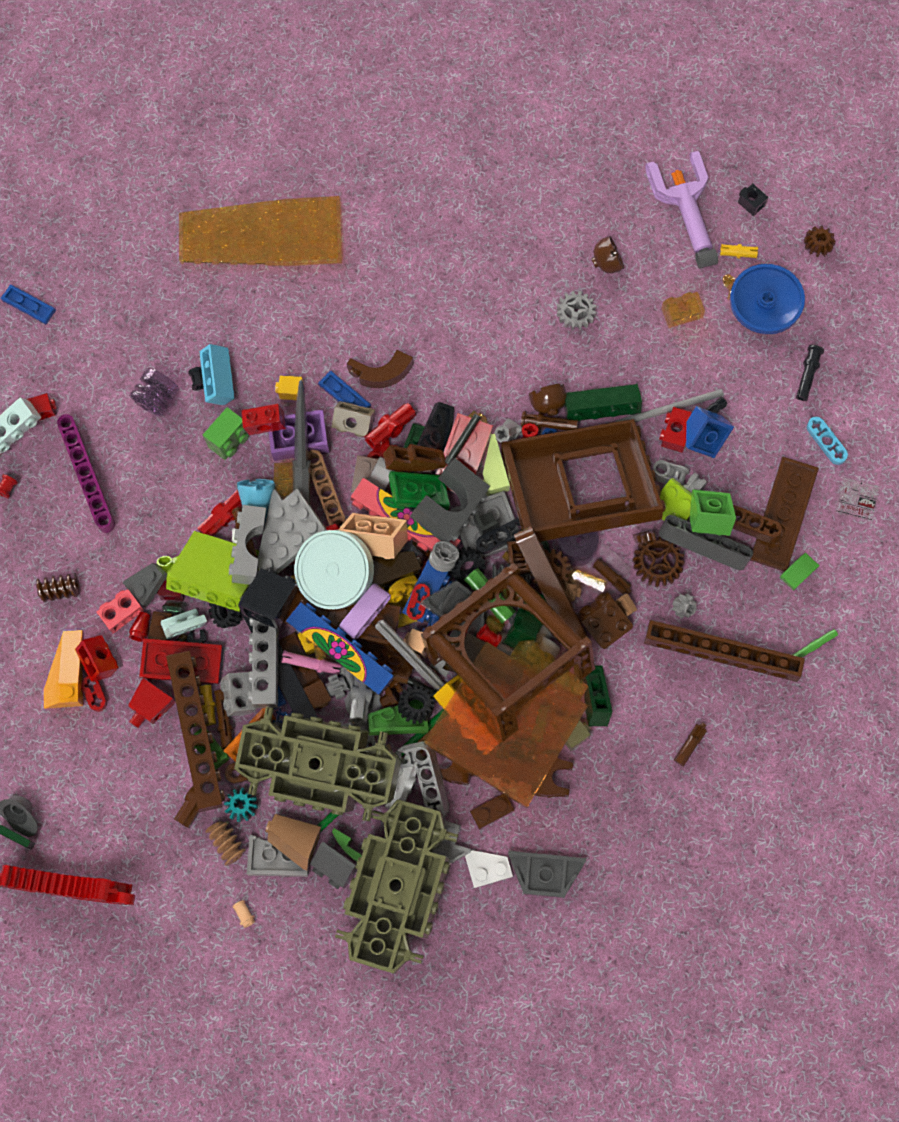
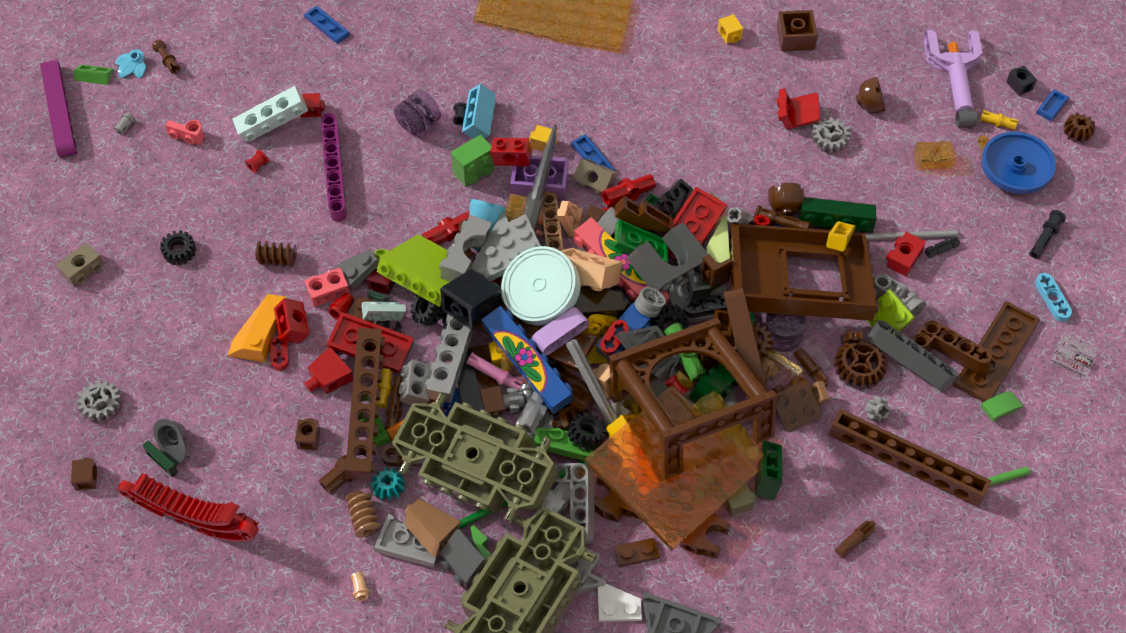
camera: 10 degrees right, 15 degrees down
(152, 781) = (310, 441): none -> reddish brown brick
(340, 473) = (570, 217): none -> light nougat wing
(382, 376) = (633, 148): reddish brown arch -> none
(447, 209) = (730, 29): none -> yellow brick
(463, 438) = (698, 207): pearl dark grey bar -> none
(497, 506) = (714, 273): none -> reddish brown panel
(516, 195) = (797, 30): none -> reddish brown brick
(537, 290) = (798, 110): none -> red bracket
(611, 432) = (840, 236): none -> yellow slope
(706, 432) = (934, 260): blue slope -> none
(712, 512) = (924, 326): bright green slope -> none
(788, 219) = (1052, 105): none -> blue tile

